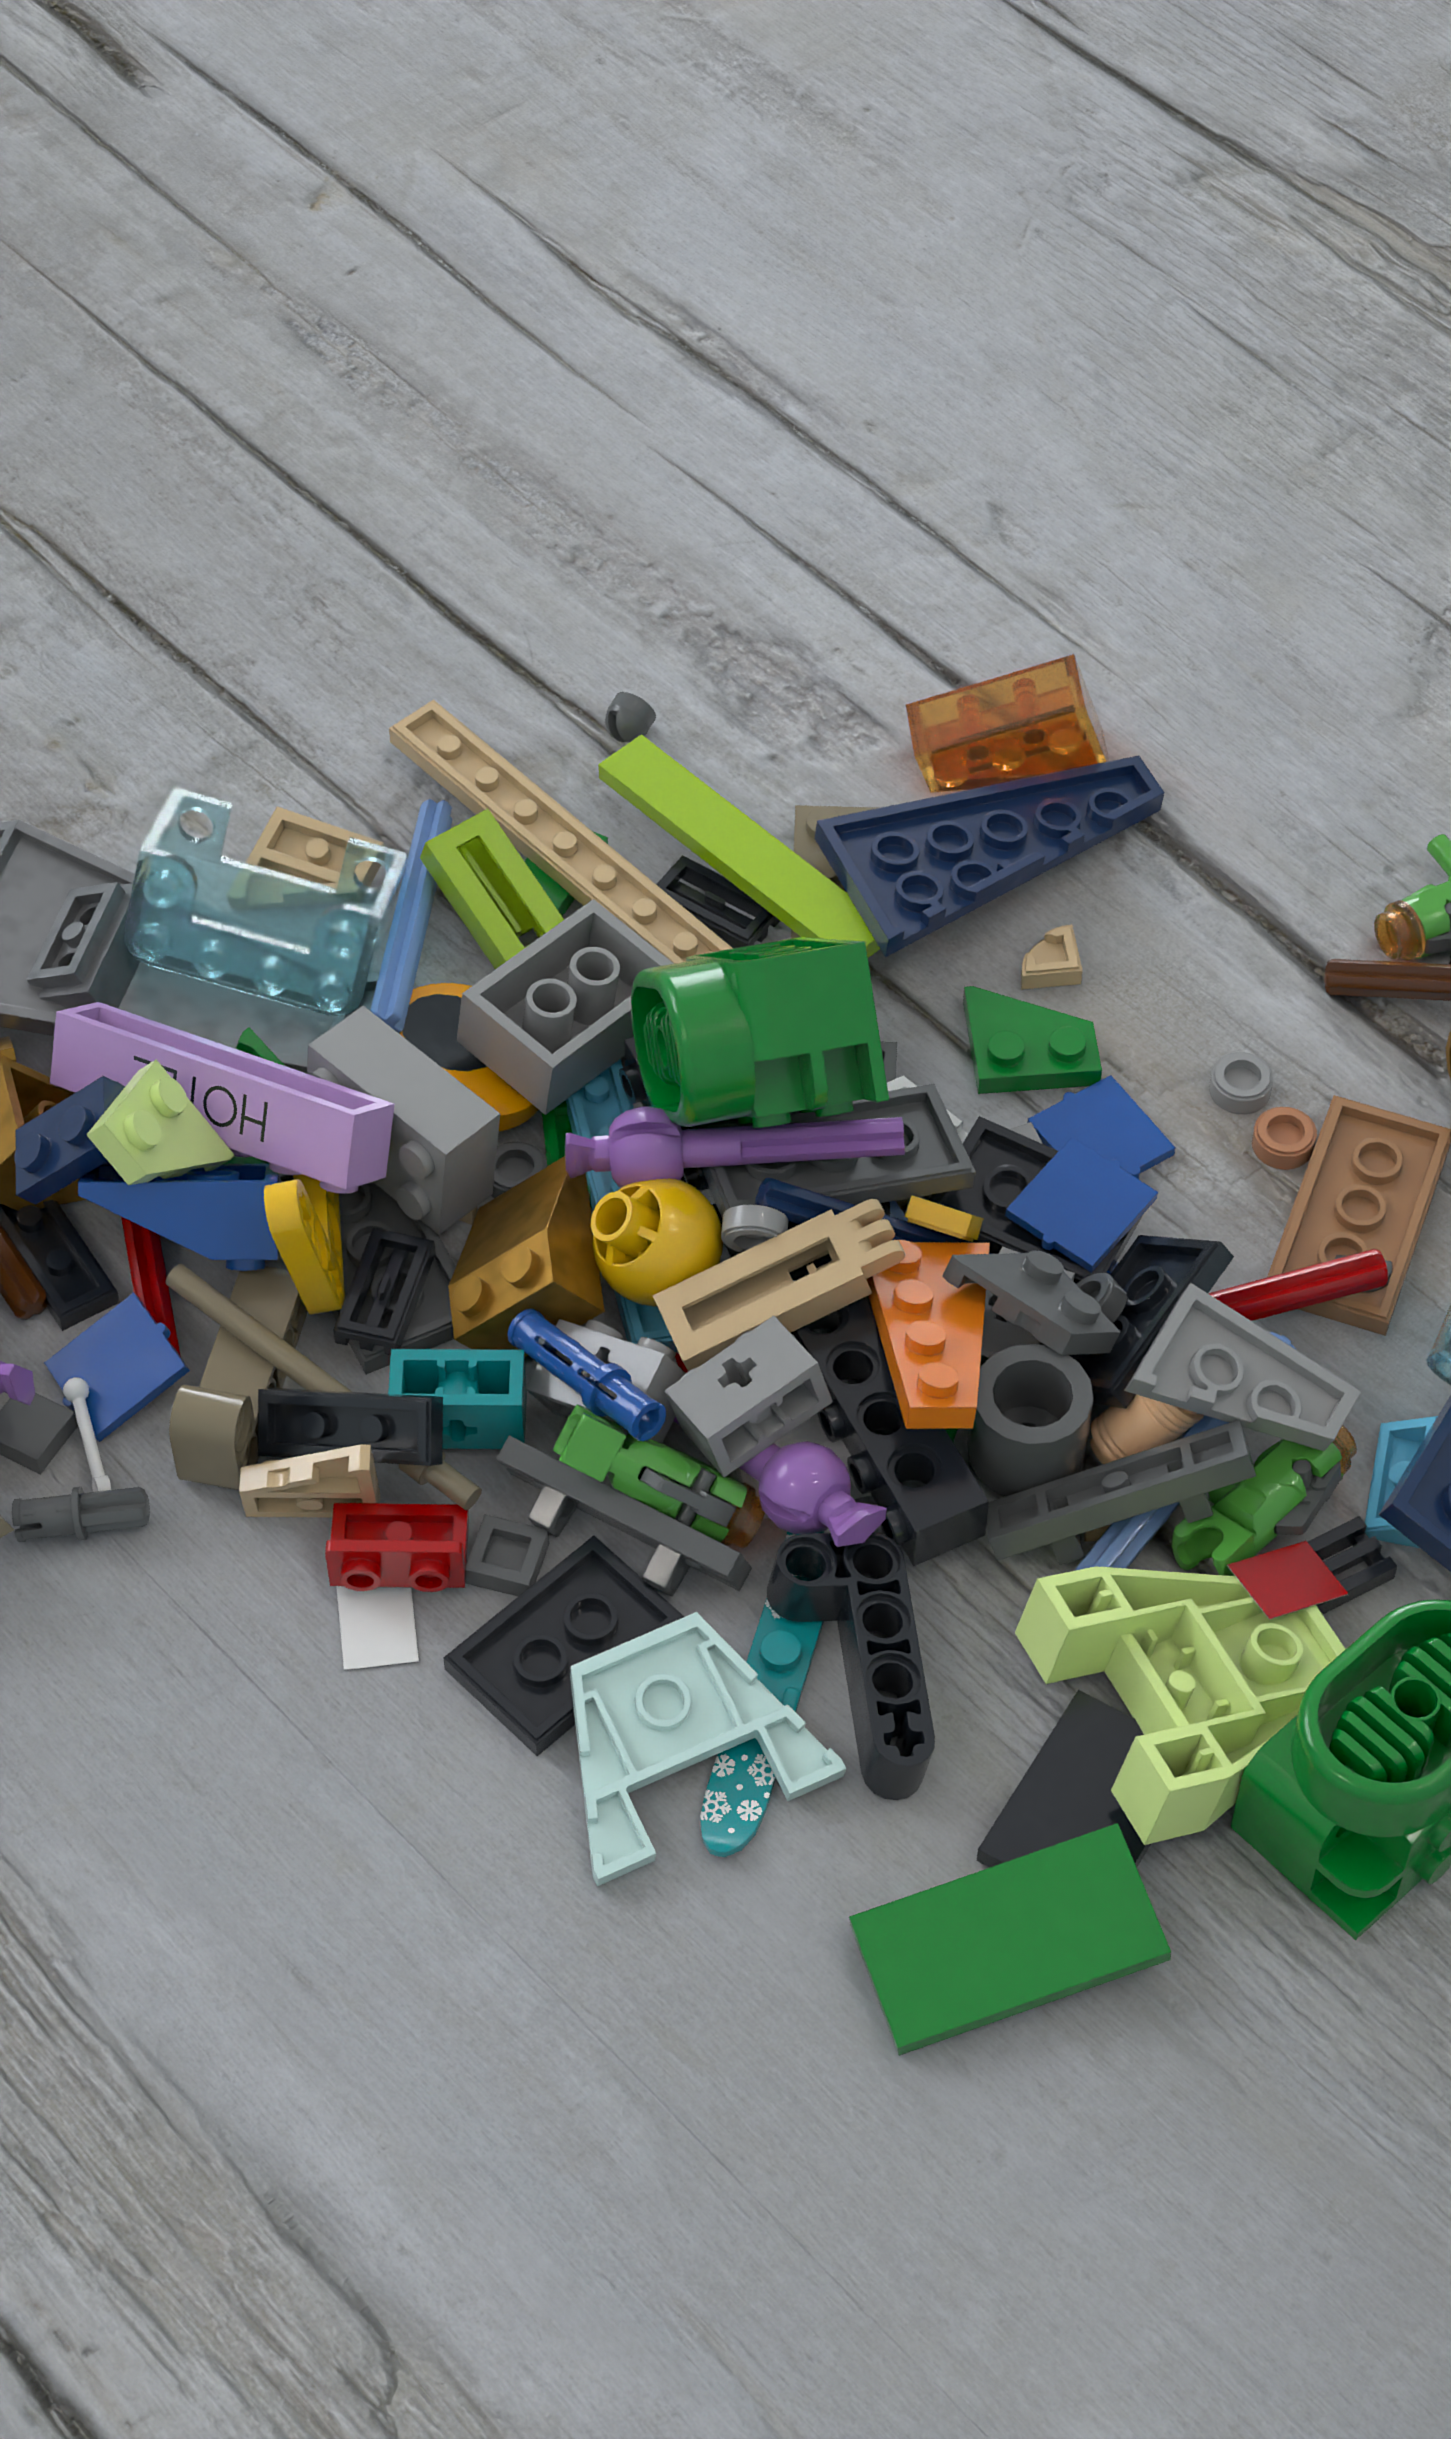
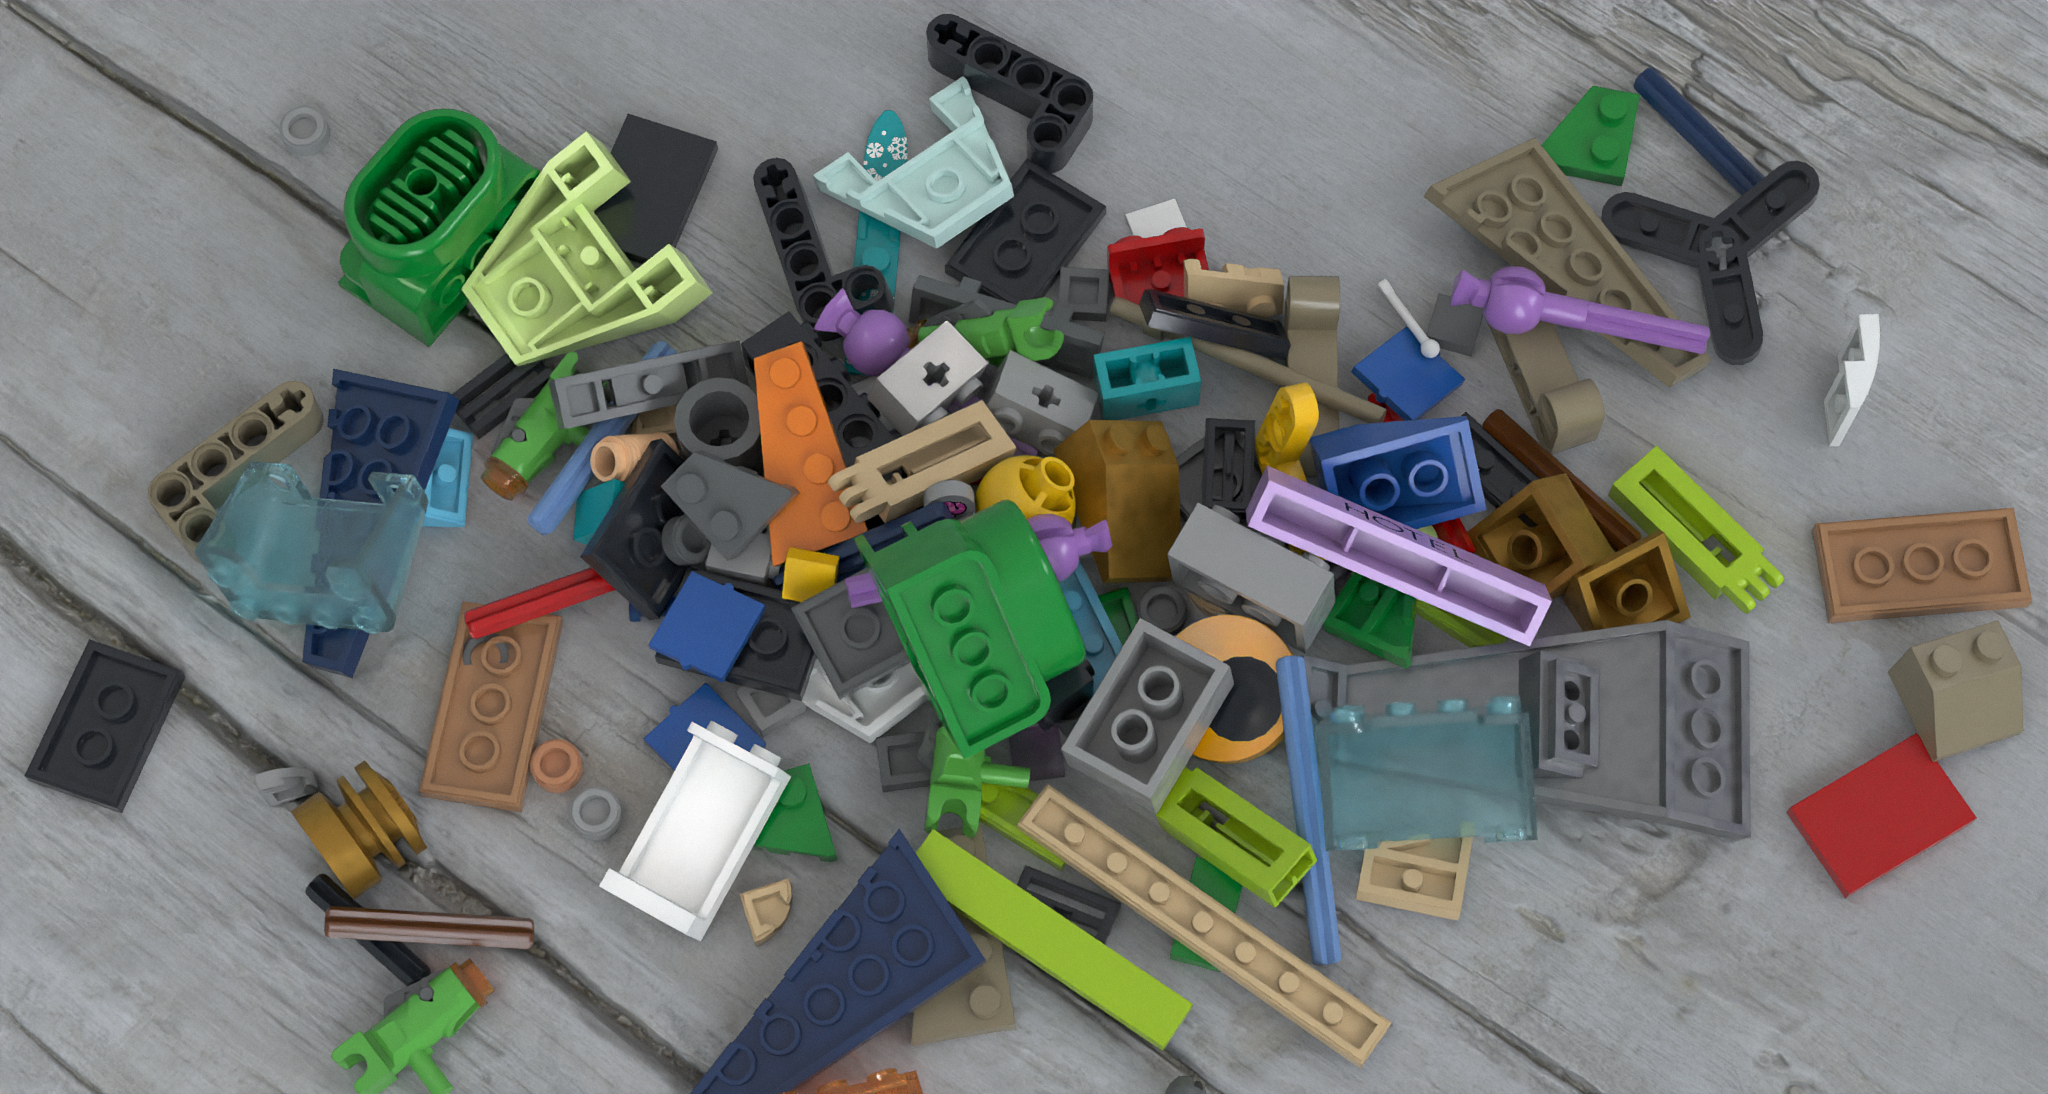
camera: 170 degrees right, 15 degrees up
(55, 1145) = (1491, 481): dark blue bracket -> none
(80, 1513) = (1392, 259): dark grey axle -> none
(156, 1130) = (1423, 467): yellowish green wing -> none
(539, 1851) = (959, 49): none -> black beam
(630, 1408) = (1048, 371): blue pin -> none
(1009, 1939) = (686, 83): green tile -> none
(1127, 1010) = (700, 831): none -> white panel
(1236, 1370) = (567, 465): light grey wing -> none
(1287, 1579) = (523, 359): red sticker -> none

